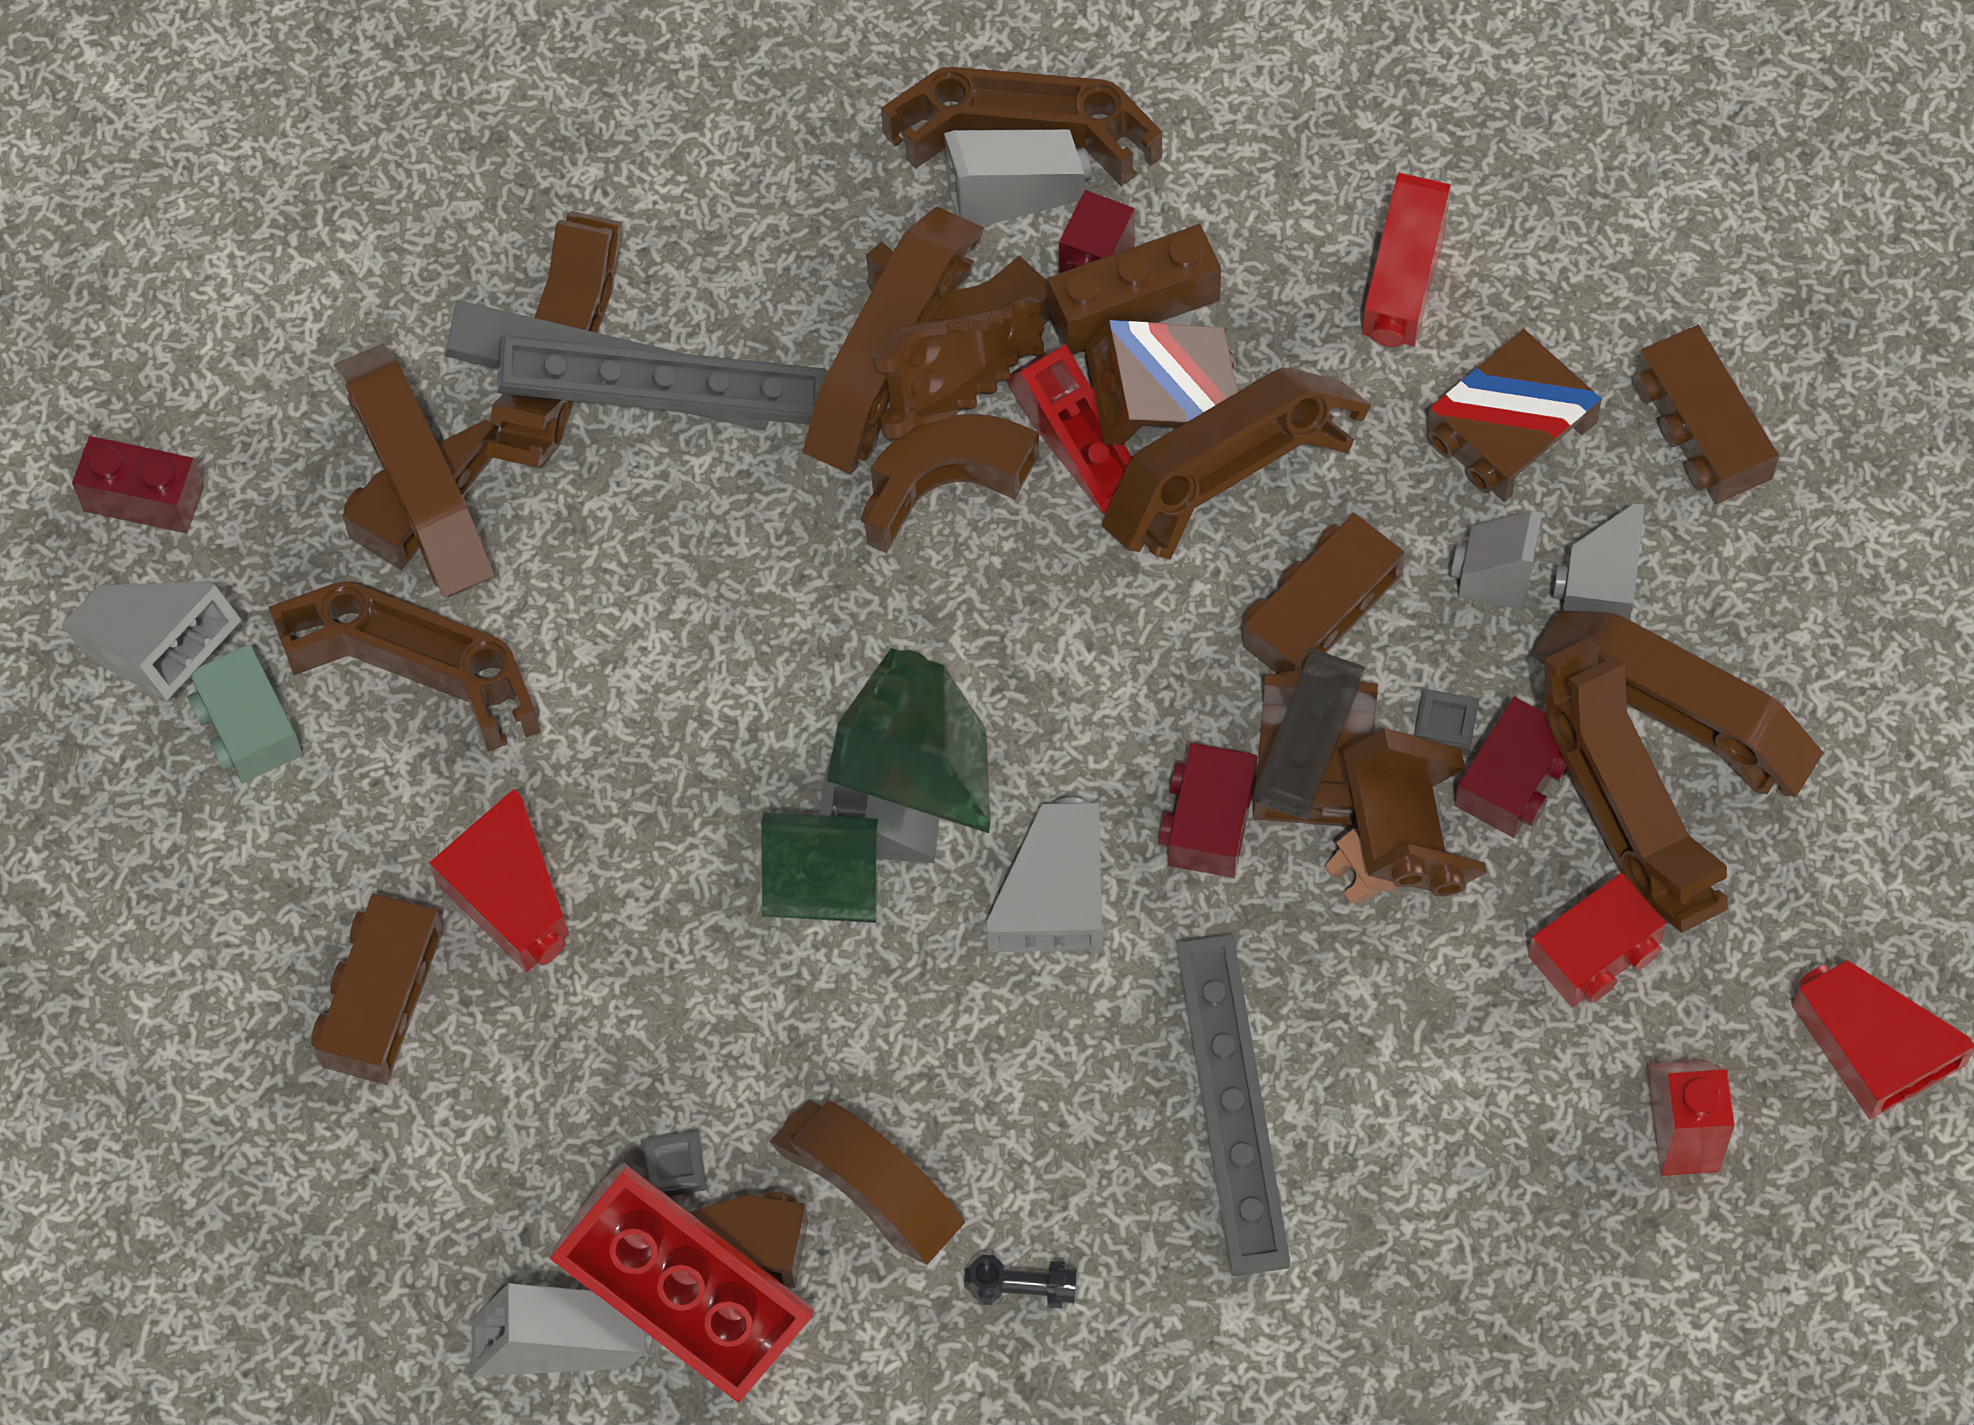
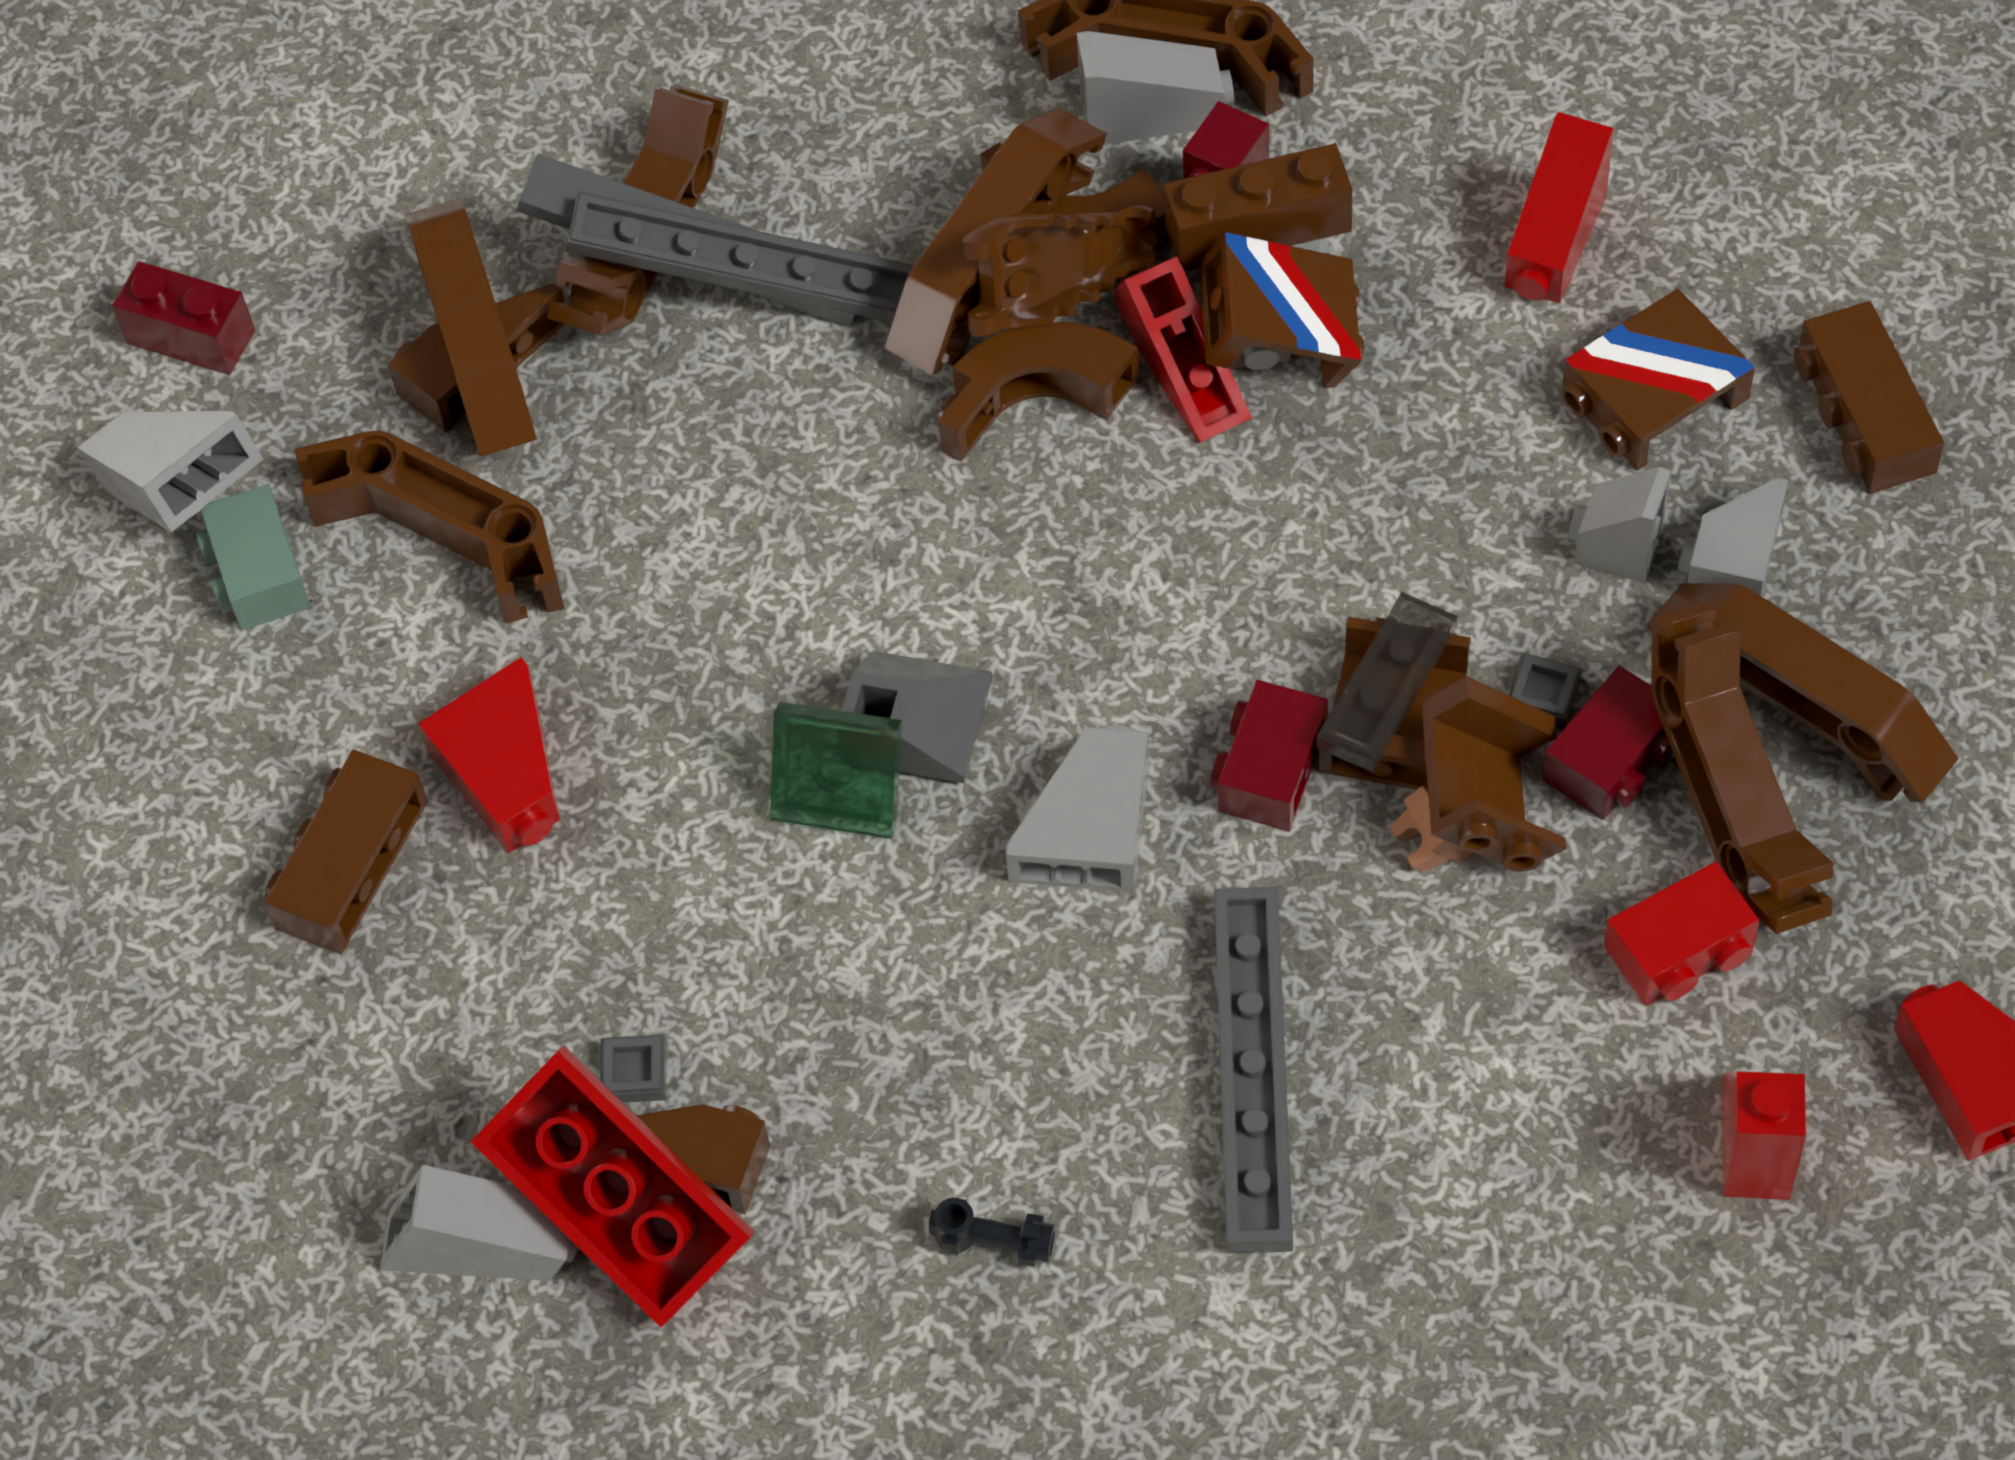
camera: 10 degrees right, 5 degrees down
(873, 1175) = (844, 1100): reddish brown arch -> none
(915, 742) = (953, 646): clear green wedge -> none
(1221, 450) = (1332, 380): reddish brown piece -> none
(1322, 595) = (1426, 543): reddish brown brick -> none

